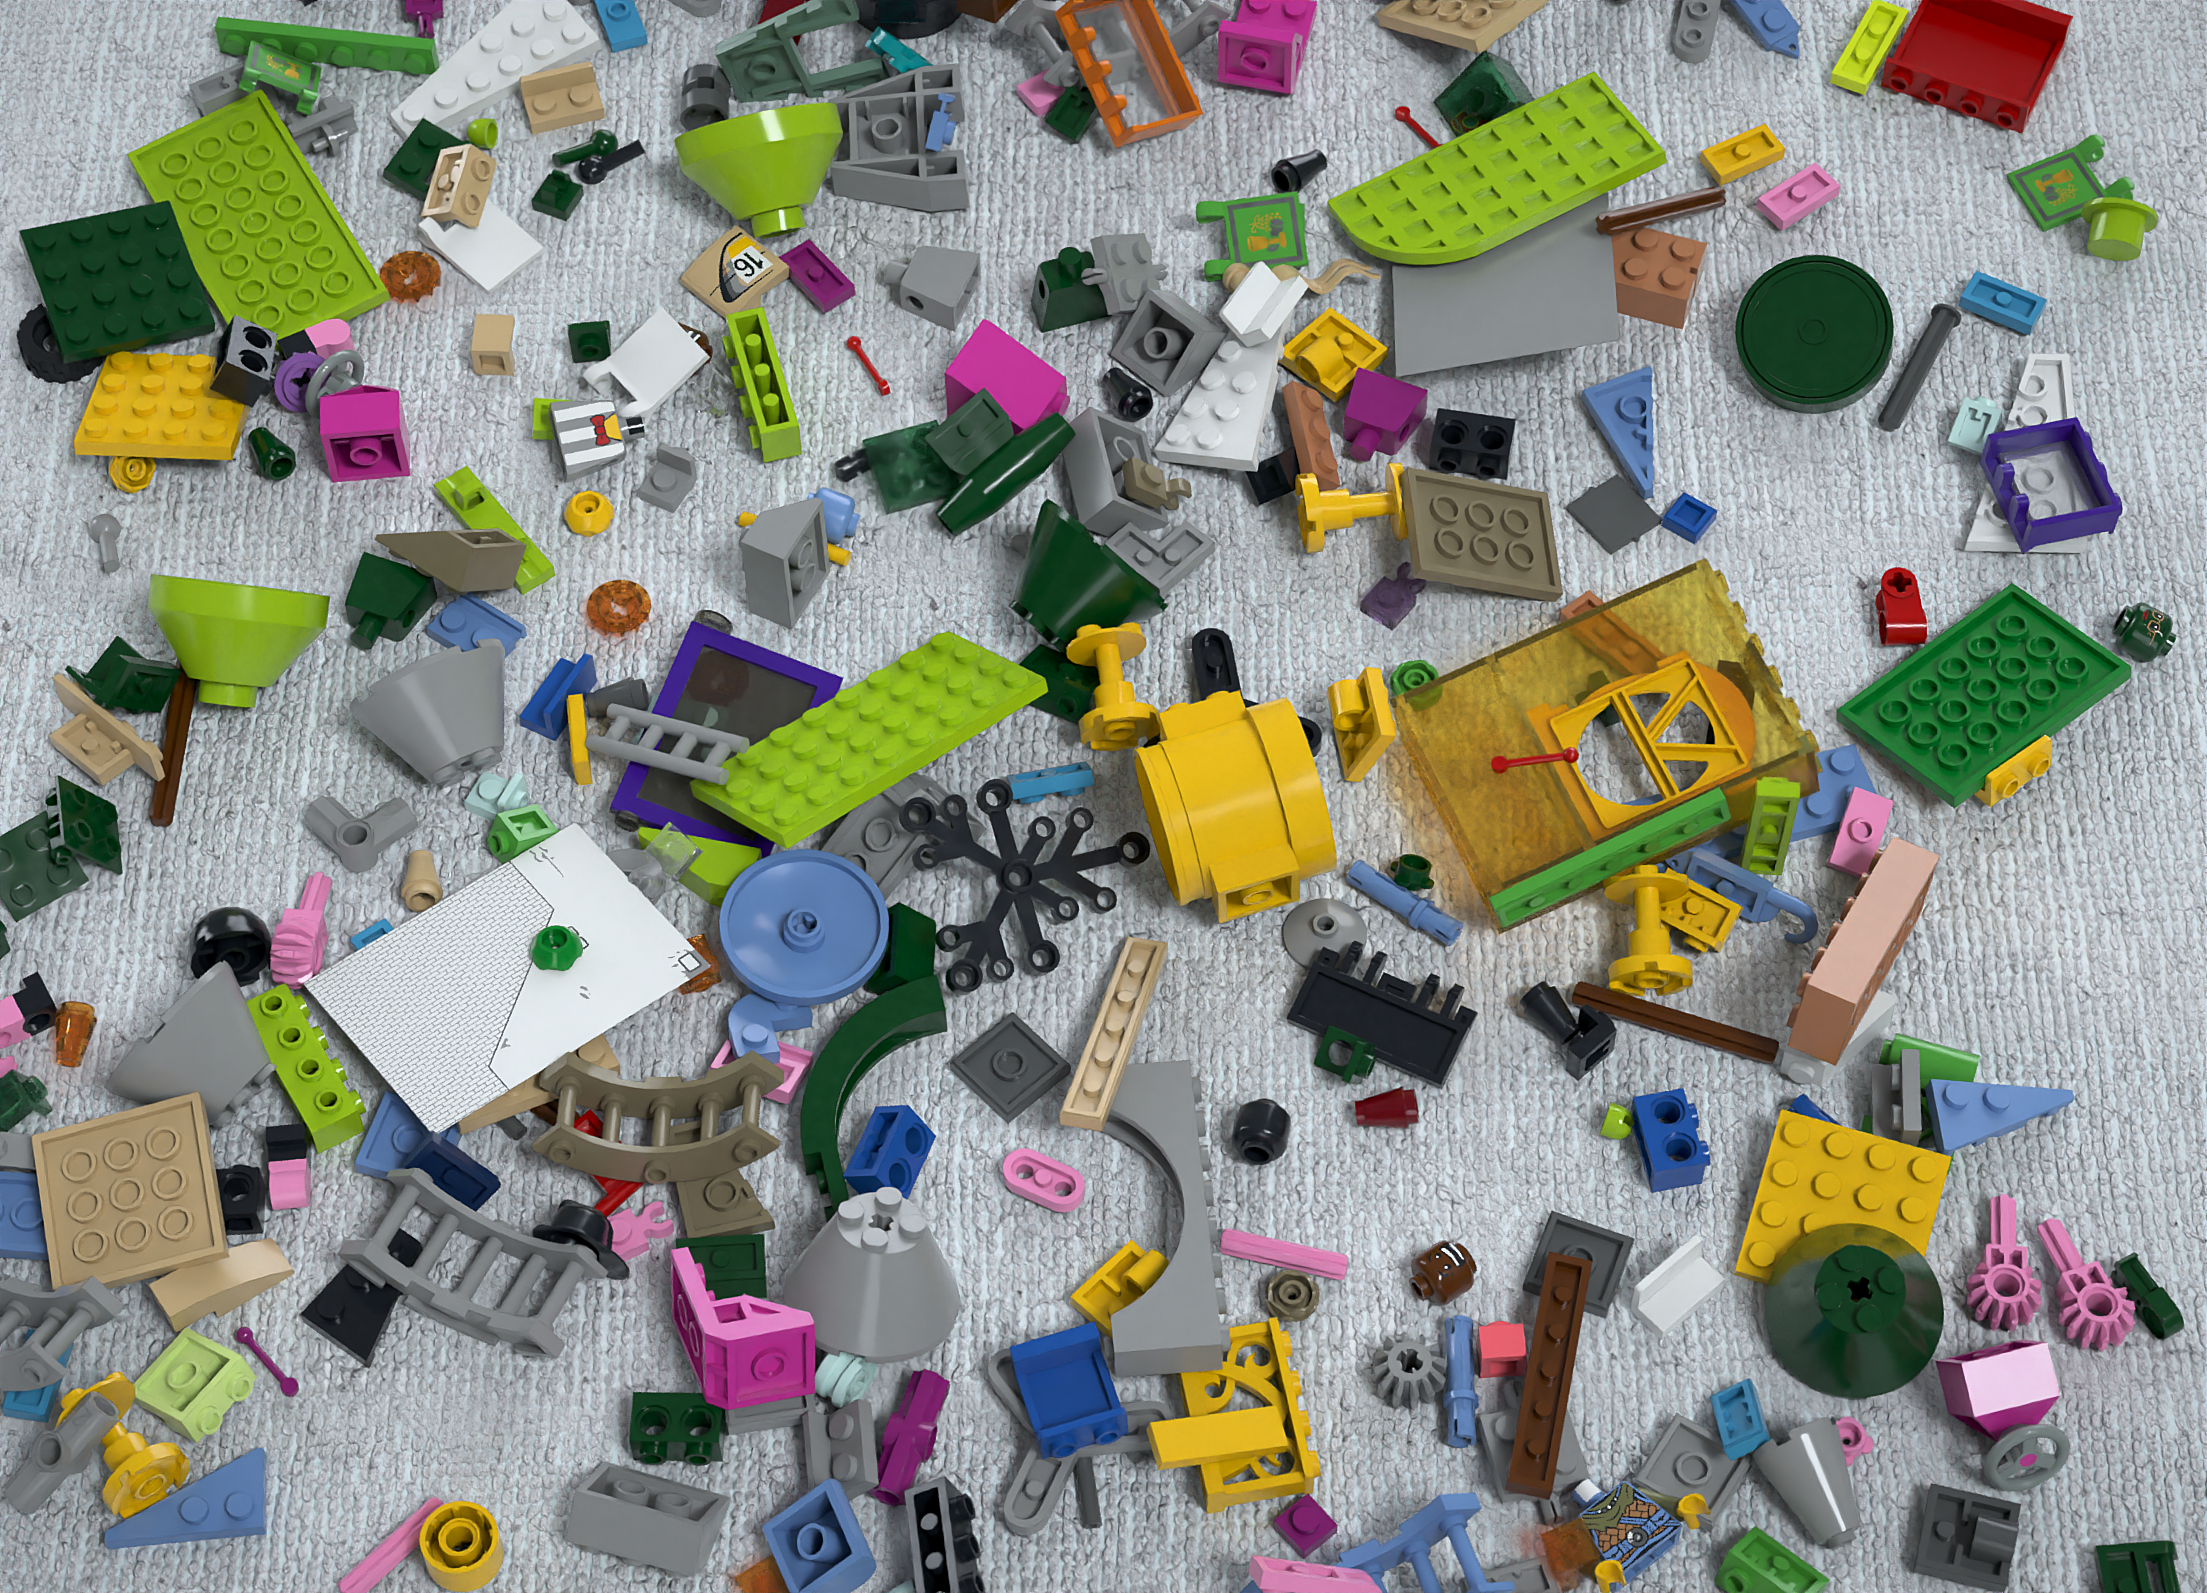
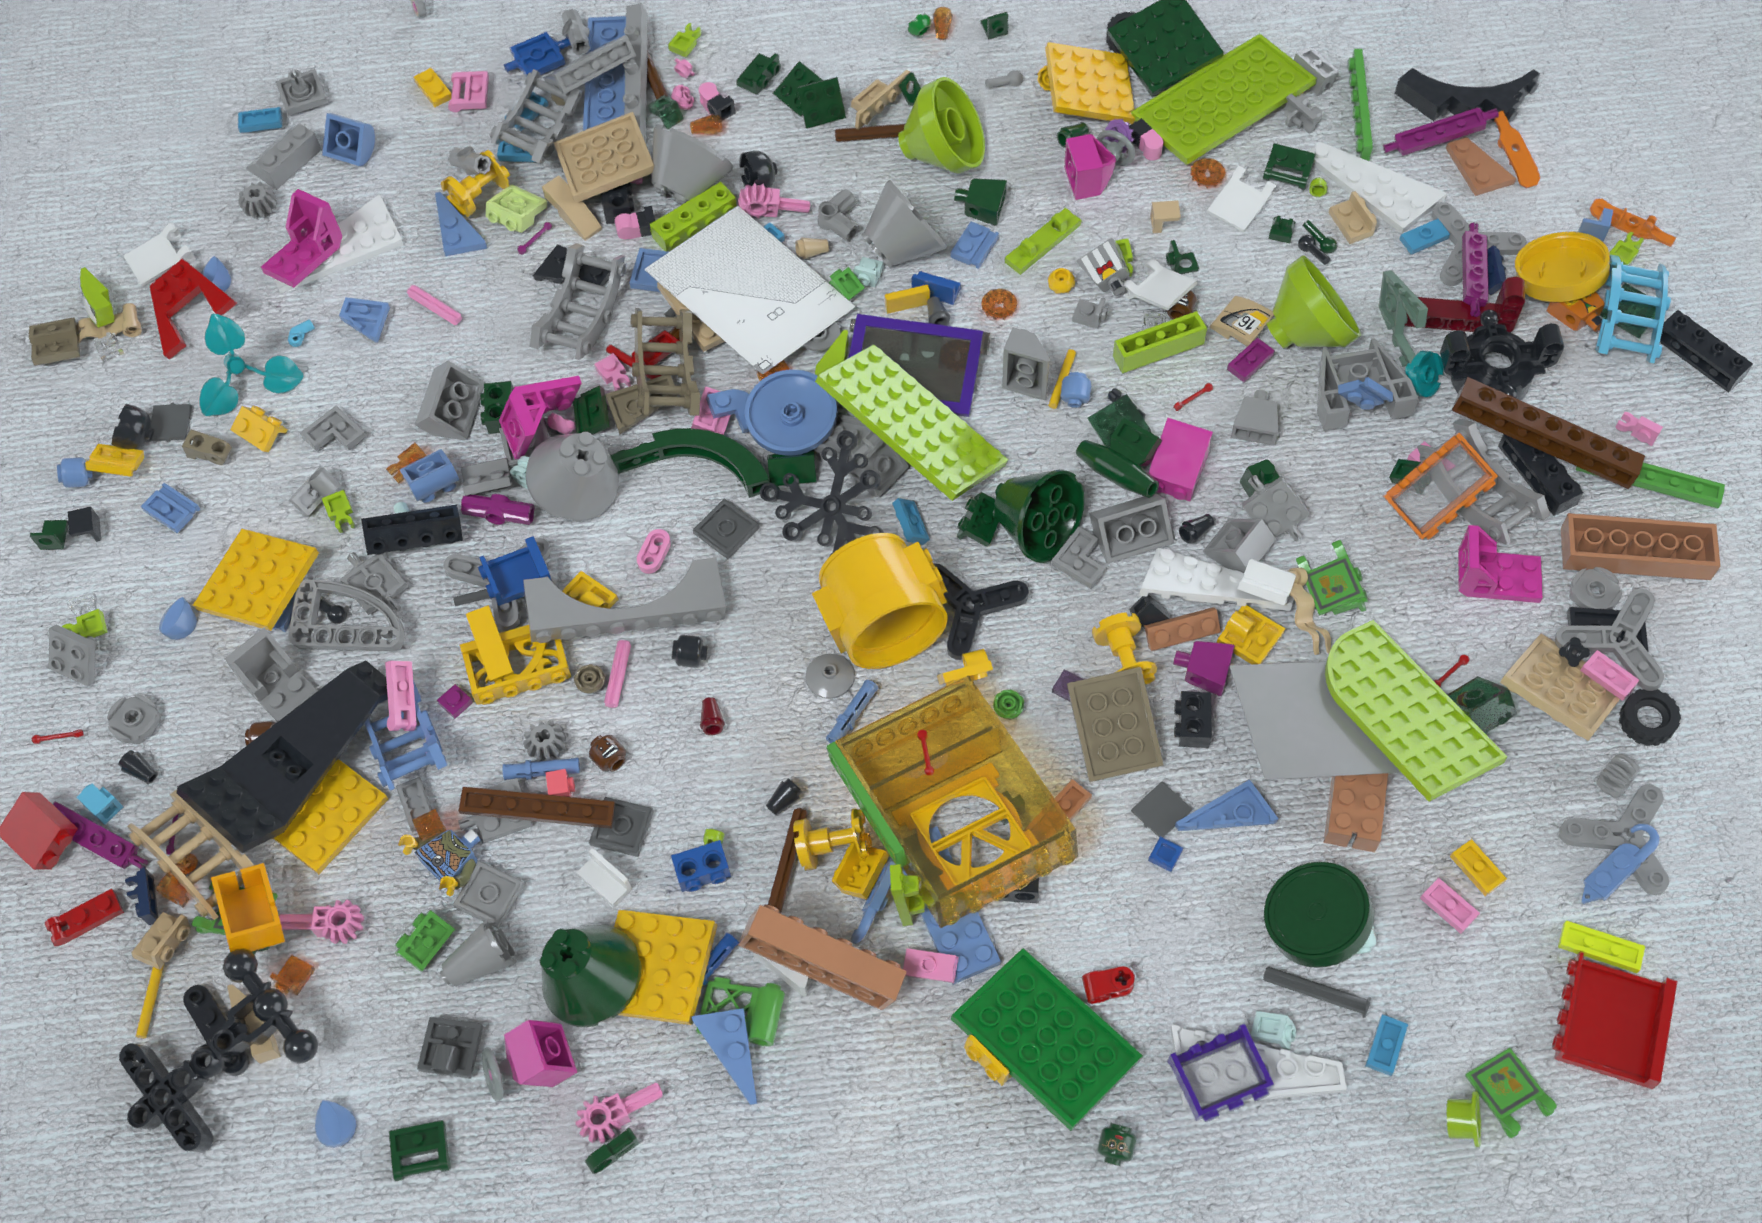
camera: 85 degrees right, 5 degrees up
(135, 685) = (901, 97): dark green bracket -> none
(244, 362) = (1116, 98): black brick -> none
(283, 72) = (1330, 83): bright green flag -> none
(453, 1171) = (633, 278): dark blue plate -> none
(456, 1525) = (427, 325): yellow piece -> none
(460, 185) = (1267, 179): tan bracket -> none
(461, 558) = (1009, 218): dark tan slope -> none
(555, 959) = (767, 311): green plate -> none
(586, 1226) = (599, 346): black piece -> none
(669, 856) = (823, 343): clear plate -> none
(677, 759) = (897, 337): light grey bar -> none
(704, 96) = (1363, 284): dark grey wheel -> none
(890, 1151) = (656, 468): blue brick -> none
(1114, 1034) = (741, 568): tan tile -> none
(1117, 715) = (960, 541): yellow piece -> none
(1148, 485) = (1123, 542): dark tan plate -> none
(1297, 171) = (1395, 602): black cone -> none
(1360, 1063) = (735, 695): dark green bracket -> none
(1405, 1032) = (773, 701): black hinge -> none
(1412, 872) = (876, 709): dark green plate -> none
(1592, 1044) = (762, 820): black bracket -> none
(1660, 210) = (1400, 809): reddish brown axle -> none
(1740, 1419) = (515, 913): dark azure plate -> none
(1859, 1442) = (504, 978): bright pink plate -> none
(1897, 1099) = (728, 992): light grey bracket -> none
(2003, 1269) = (627, 1063): bright pink gear -> none

